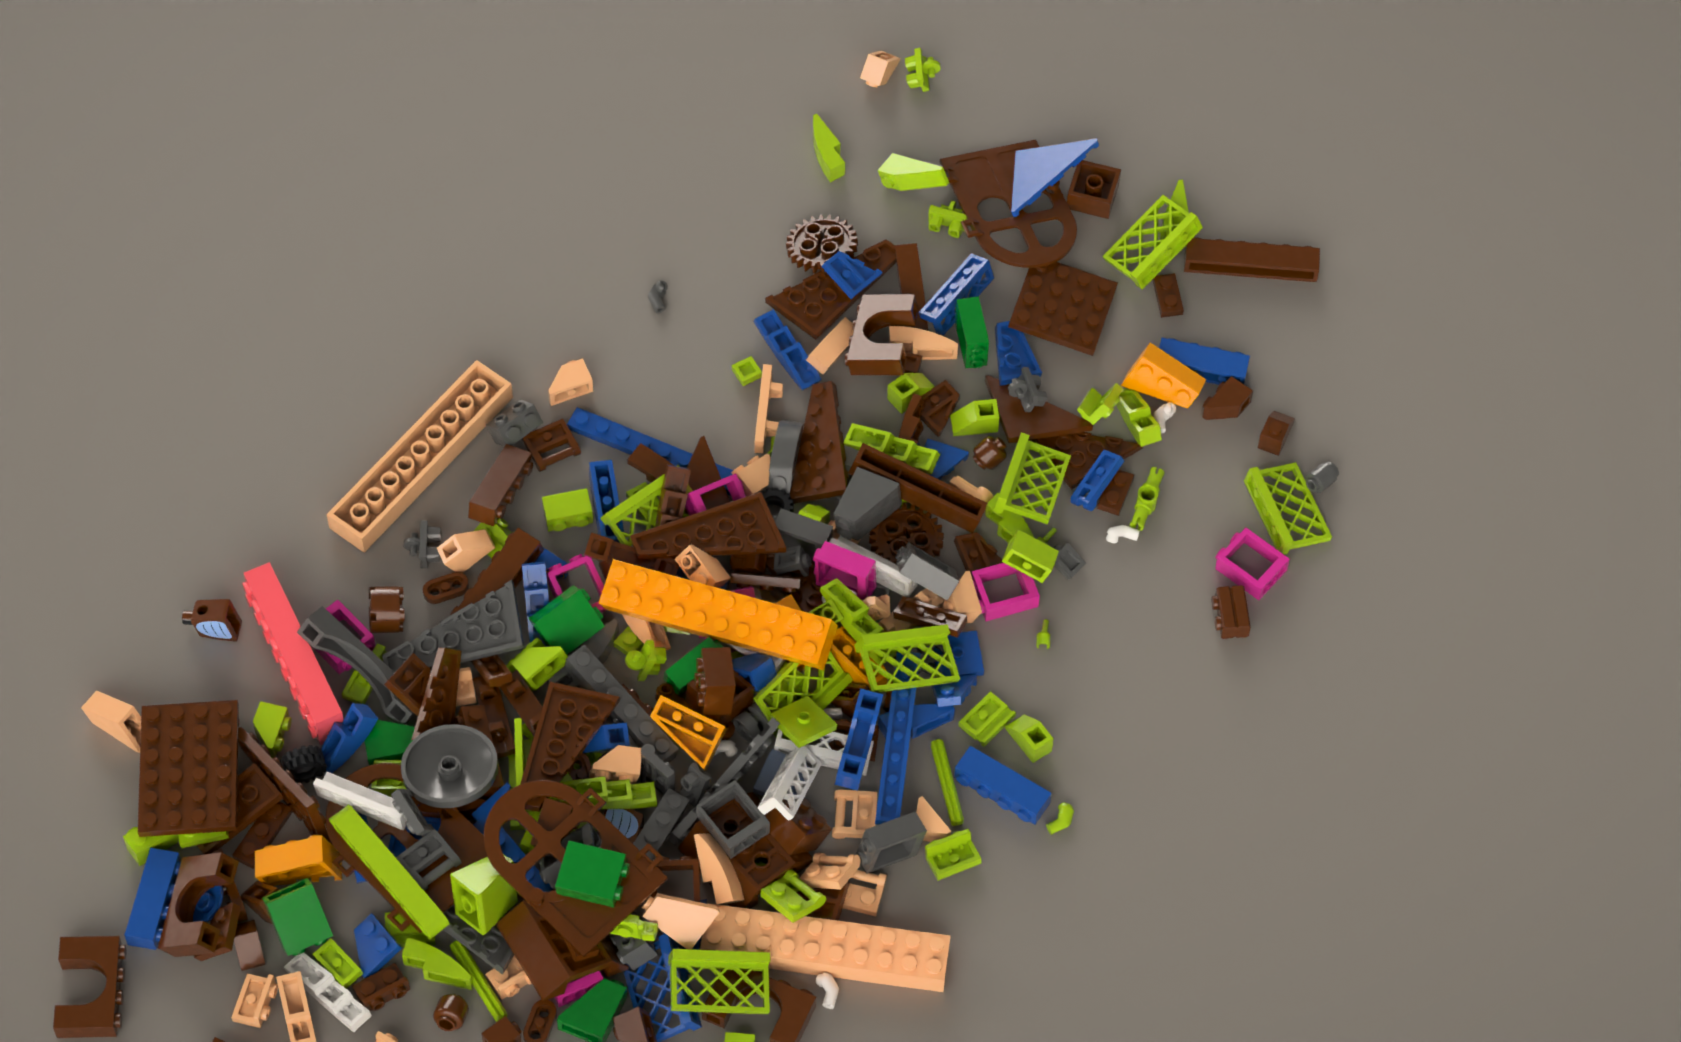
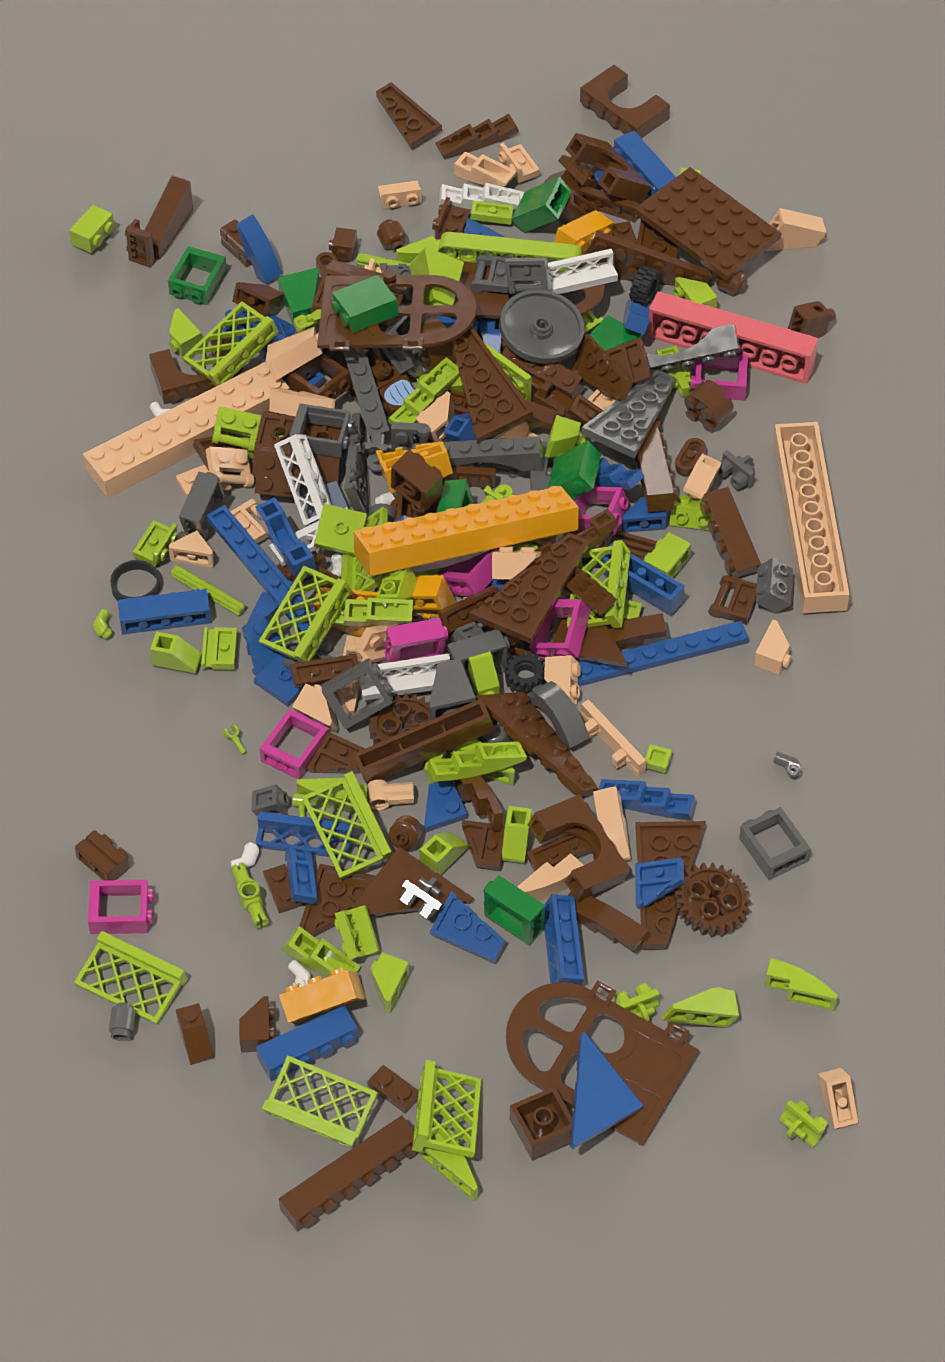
camera: 140 degrees right, 5 degrees down
(568, 538) = (635, 542): none -> reddish brown tile
(739, 231) = (783, 862): none -> dark grey window
(1001, 813) = (134, 565): none -> black tyre
(1030, 556) = (290, 761): lime brick -> none
(1063, 306) = (465, 1002): reddish brown plate -> none
(1066, 526) = (301, 827): none -> blue fence
(1102, 362) = (389, 978): none -> lime slope
(1247, 307) = (311, 1122): none -> lime fence

